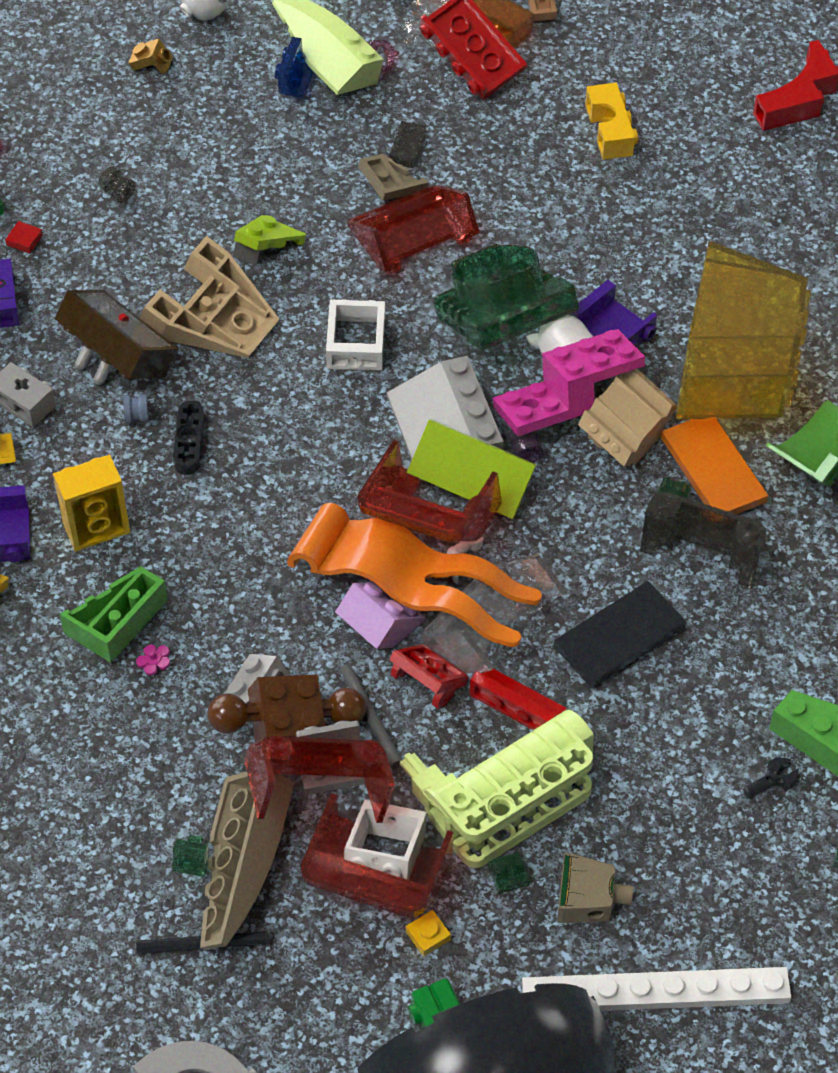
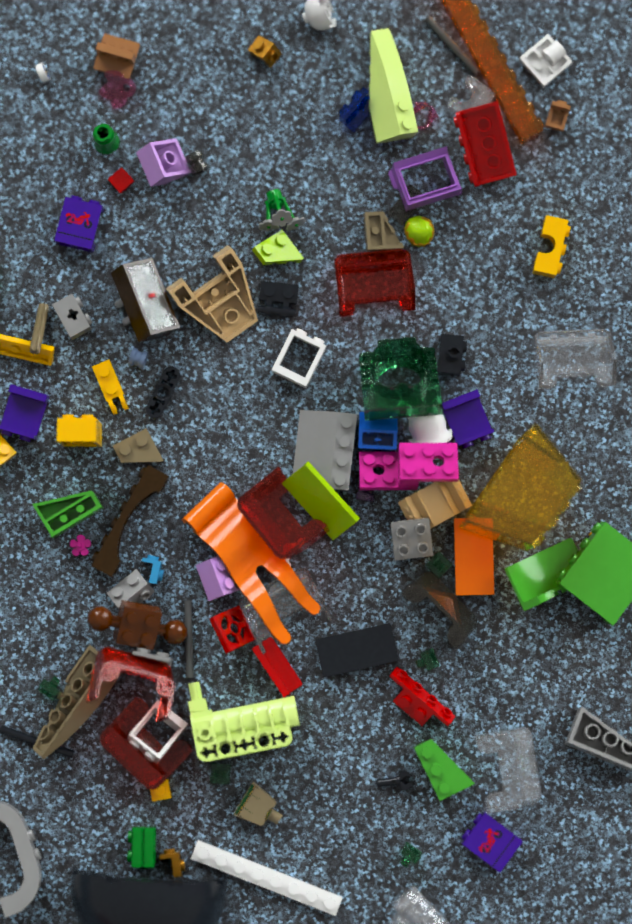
camera: 25 degrees right, 30 degrees up
(70, 198) = (163, 162): none -> lavender slope
(97, 443) = (109, 384): none -> yellow hinge
(184, 513) = (138, 449): none -> dark tan wing
(203, 654) = (151, 482): none -> dark brown arch
(254, 183) = (276, 201): none -> plant
(274, 634) = (156, 572): none -> dark azure bracket
(294, 286) = (278, 293): none -> black plate
(387, 117) = (430, 197): none -> medium lavender piece
(439, 160) = (419, 231): none -> lime hair
(506, 373) = (377, 434): none -> blue slope
(555, 255) = (450, 355): none -> black brick
(621, 466) = (411, 539): none -> light grey bracket
(720, 206) = (574, 355): none -> clear windscreen
(724, 606) = (428, 659): none -> clear green tile
(742, 667) = (417, 701): none -> red bracket

